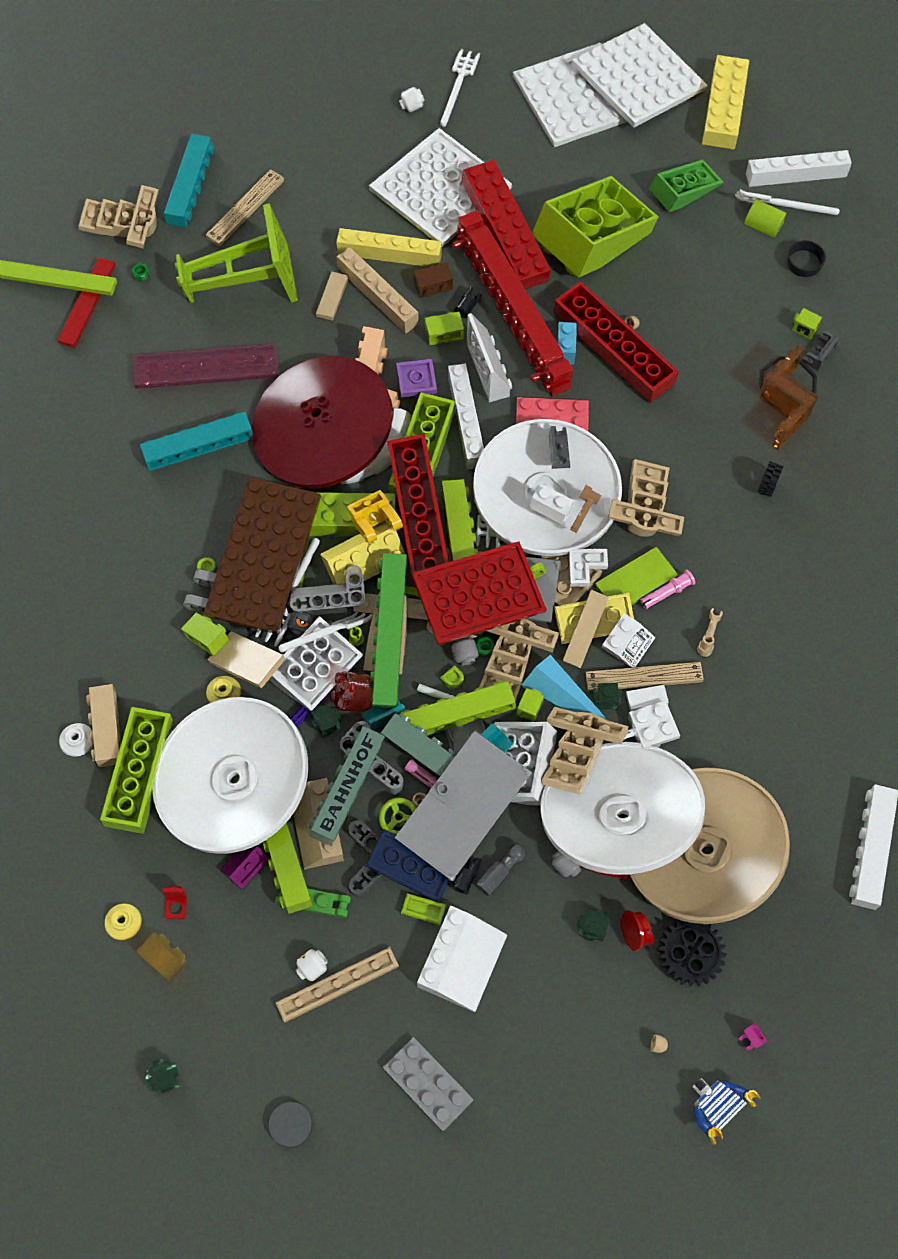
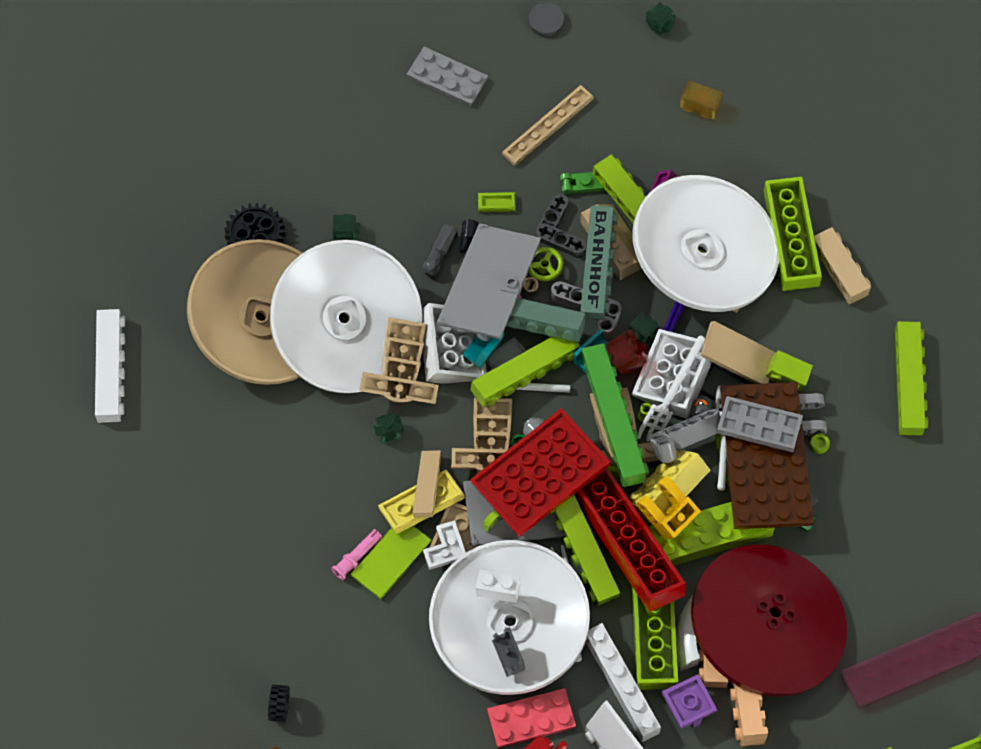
camera: 165 degrees right, 0 degrees up
(75, 747) = (866, 258): white piece -> none
(94, 597) = (910, 378): none -> lime brick
(124, 930) = (745, 127): light yellow piece -> none
(173, 895) = (711, 147): red bracket -> none
(196, 441) = (890, 567): teal brick -> none
(229, 683) = (759, 331): light yellow piece -> none
(258, 573) = (759, 424): none -> light grey plate
(311, 965) = (574, 129): white head -> none
(406, 868) = (533, 223): dark blue tile -> none
(453, 678) = (539, 407): lime tile -> none
(461, 959) = (450, 170): white slope -> none
(530, 704) = (458, 399): lime brick -> none
(559, 688) = (440, 425): medium azure wedge -> none
(590, 497) = (463, 611): medium nougat brick -> none
(628, 641) = (383, 484): white slope -> none
(636, 930) = (305, 230): red hat -> none
(645, 697) = (350, 442): white tile -> none
(646, 502) = (402, 639): tan slope -> none
(647, 676) = (357, 462): tan tile -> none
(652, 725) = (338, 413): white plate -> none
(659, 1044) = (266, 156): tan hinge -> none
(706, 645) = (304, 522): tan brick -> none
(719, 1105) = (206, 123): torso -> none
(755, 1036) = (186, 182): dark pink tile -> none

